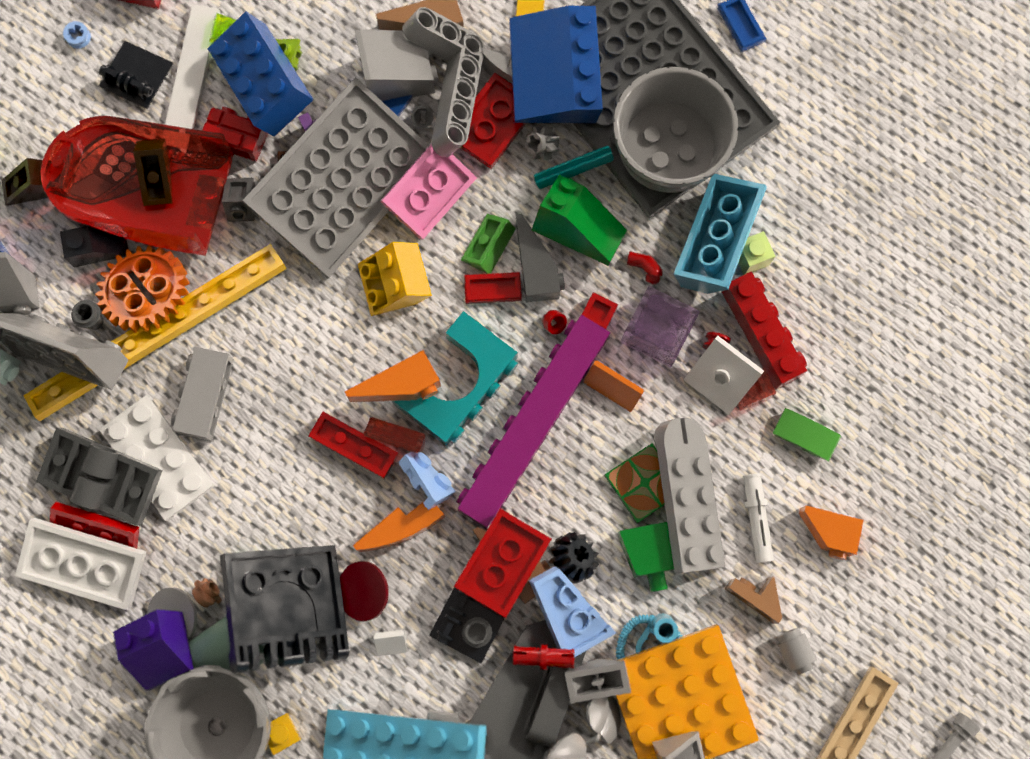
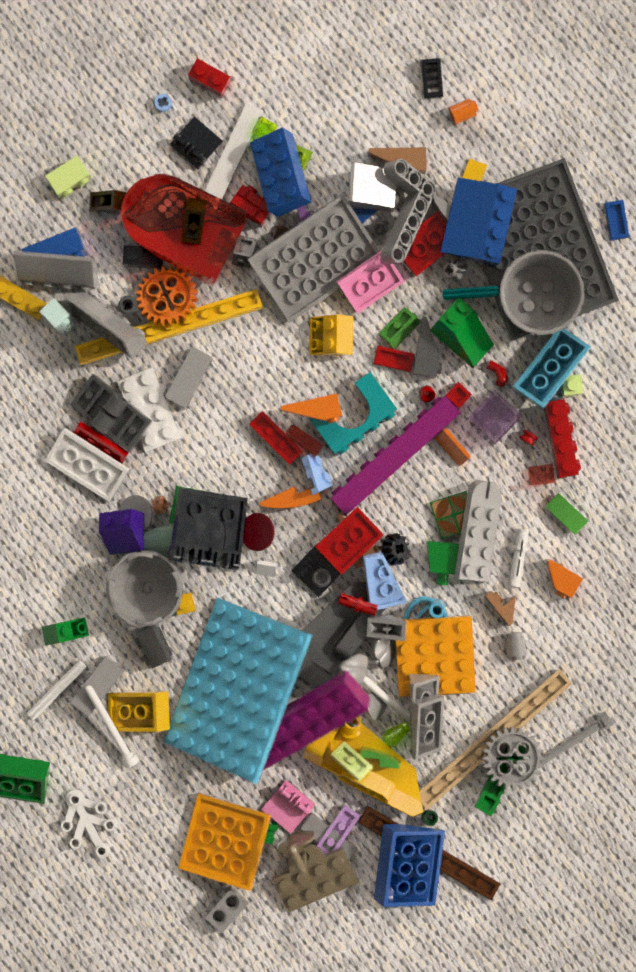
camera: 15 degrees right, 10 degrees up
(723, 375) = (525, 461): white plate -> none

